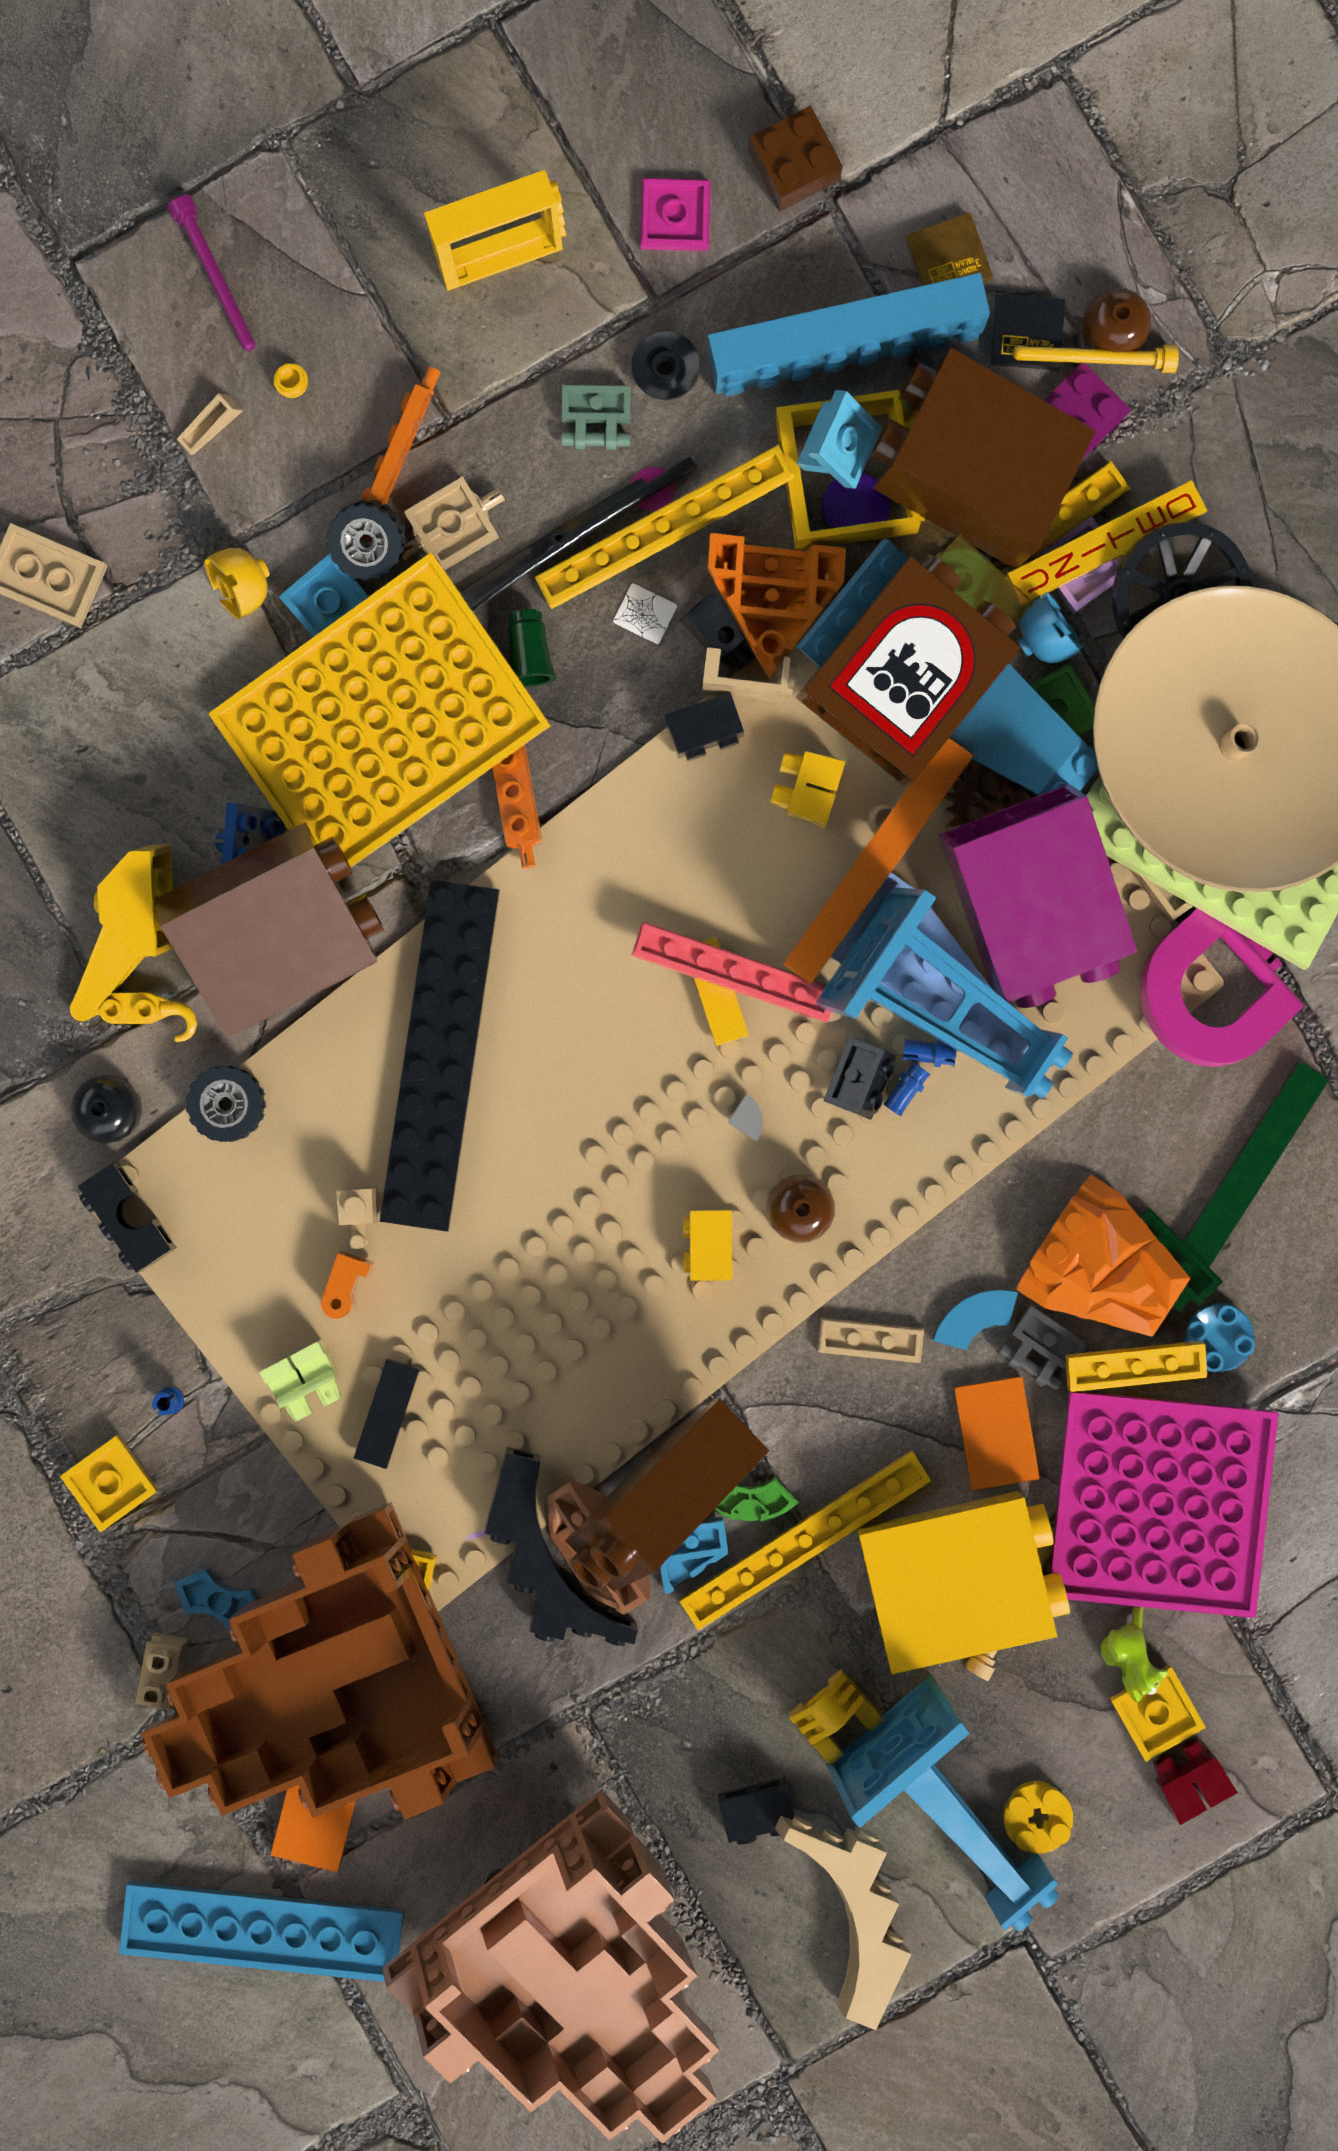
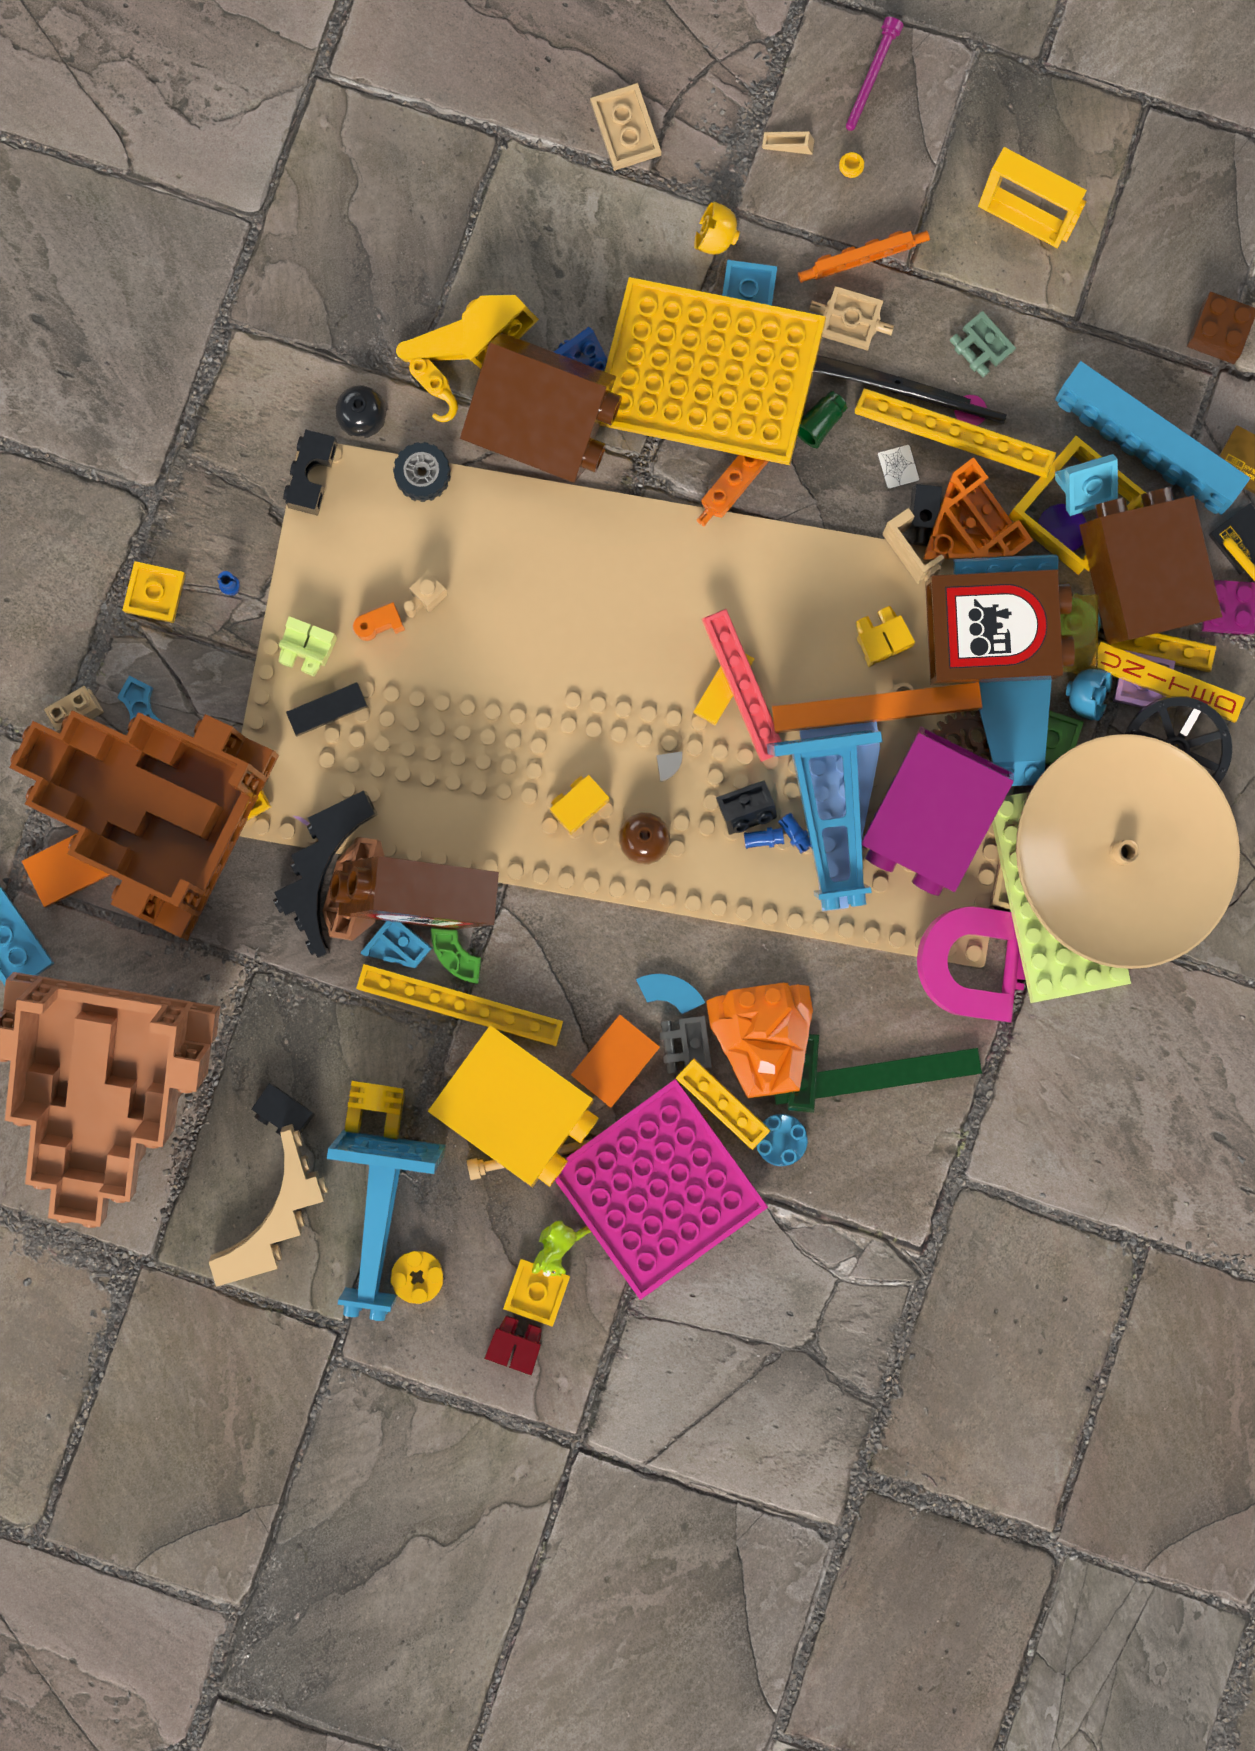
camera: 50 degrees right, 5 degrees down
(354, 554) = (787, 278): black wheel -> none
(439, 1055) = (552, 565): black plate -> none
(669, 349) = (1047, 346): black dish -> none
(675, 214) = (1132, 291): dark pink tile -> none
(704, 726) = (864, 550): black brick -> none
(870, 1340) = (605, 944): tan tile -> none

